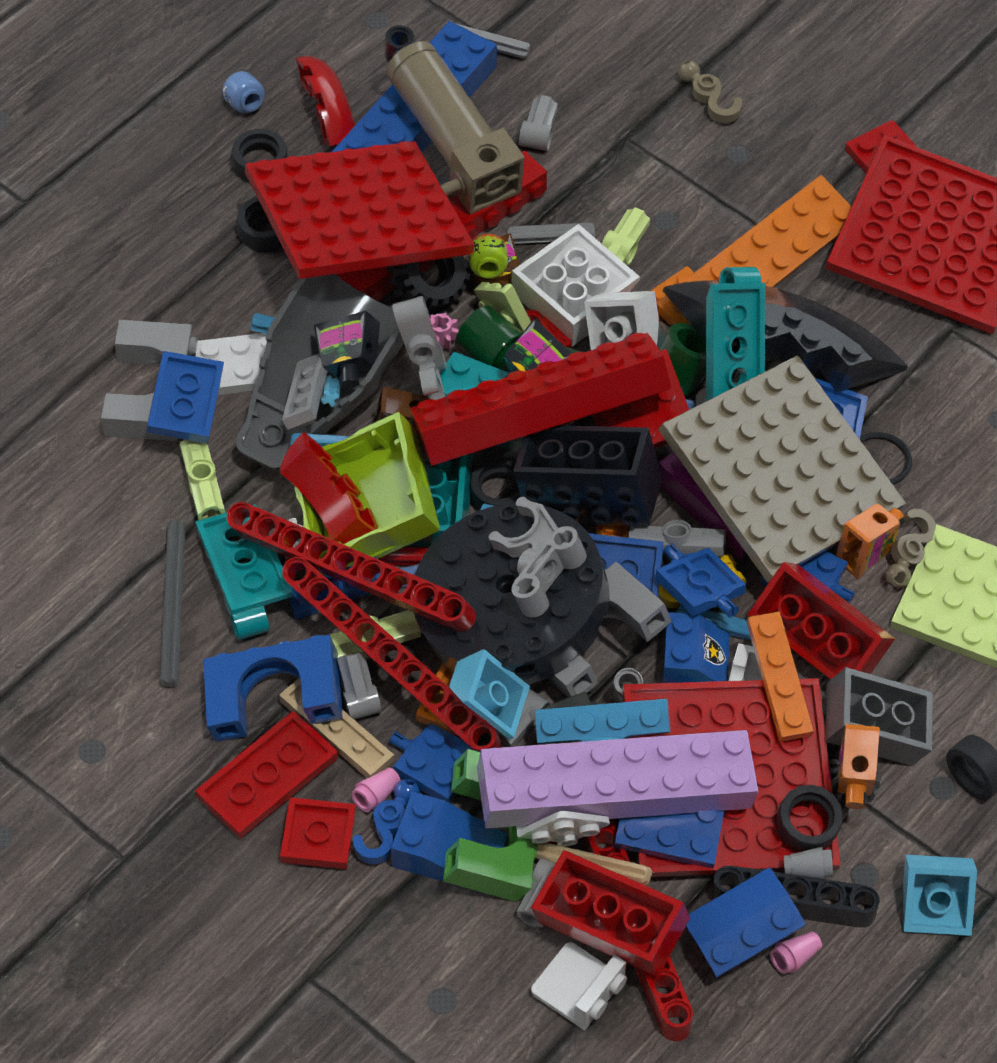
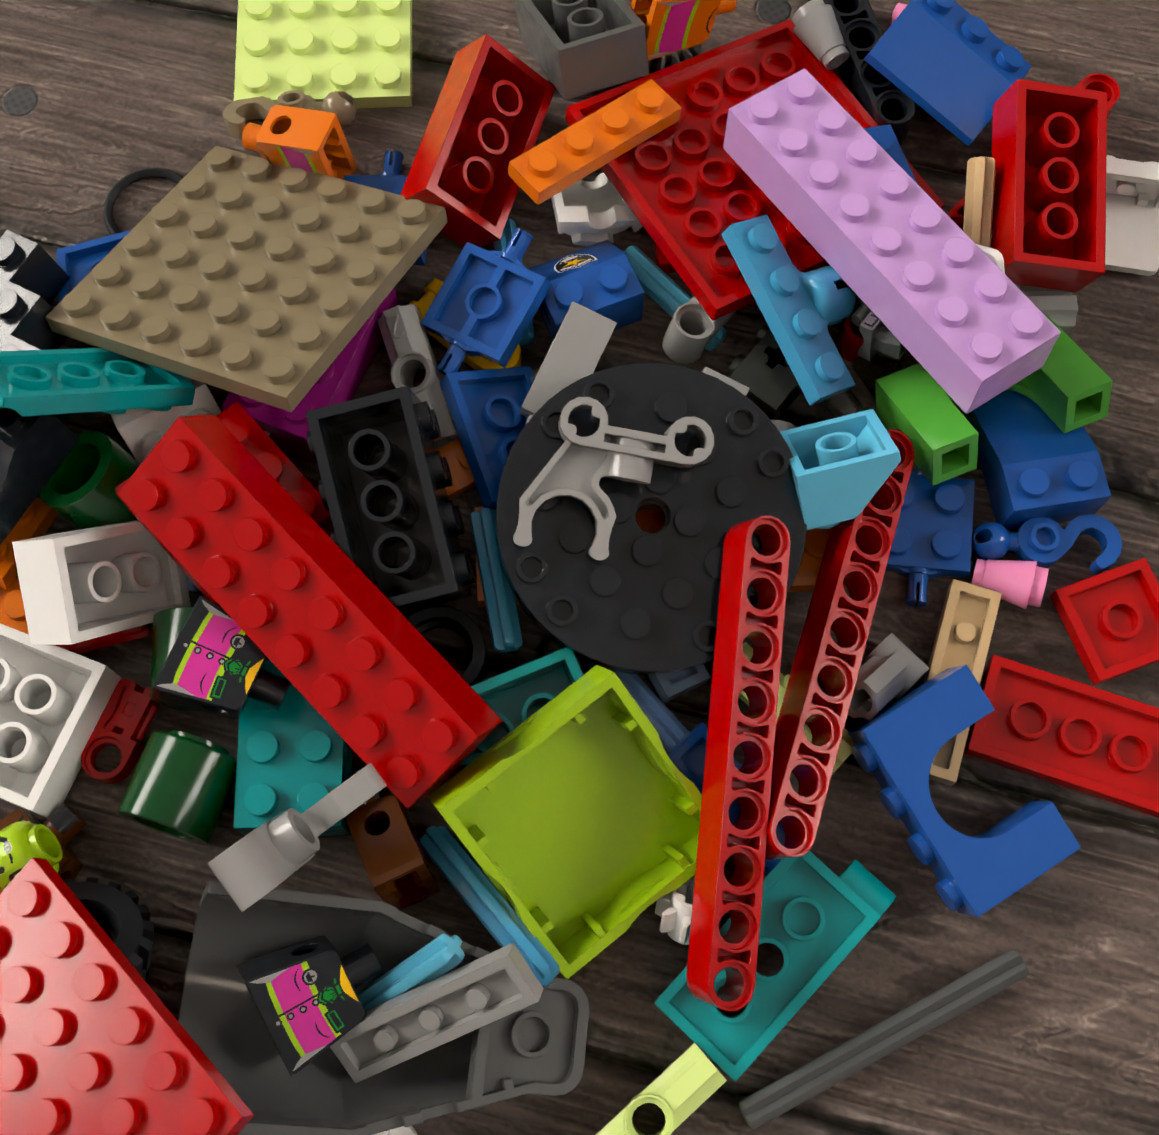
camera: 115 degrees left, 15 degrees up
(330, 494) = (600, 871): red brick -> none
(444, 329) = (173, 894): bright pink gear -> none
(504, 301) = (93, 822): yellowish green wing -> none
(815, 795) = (770, 26): black tyre -> none

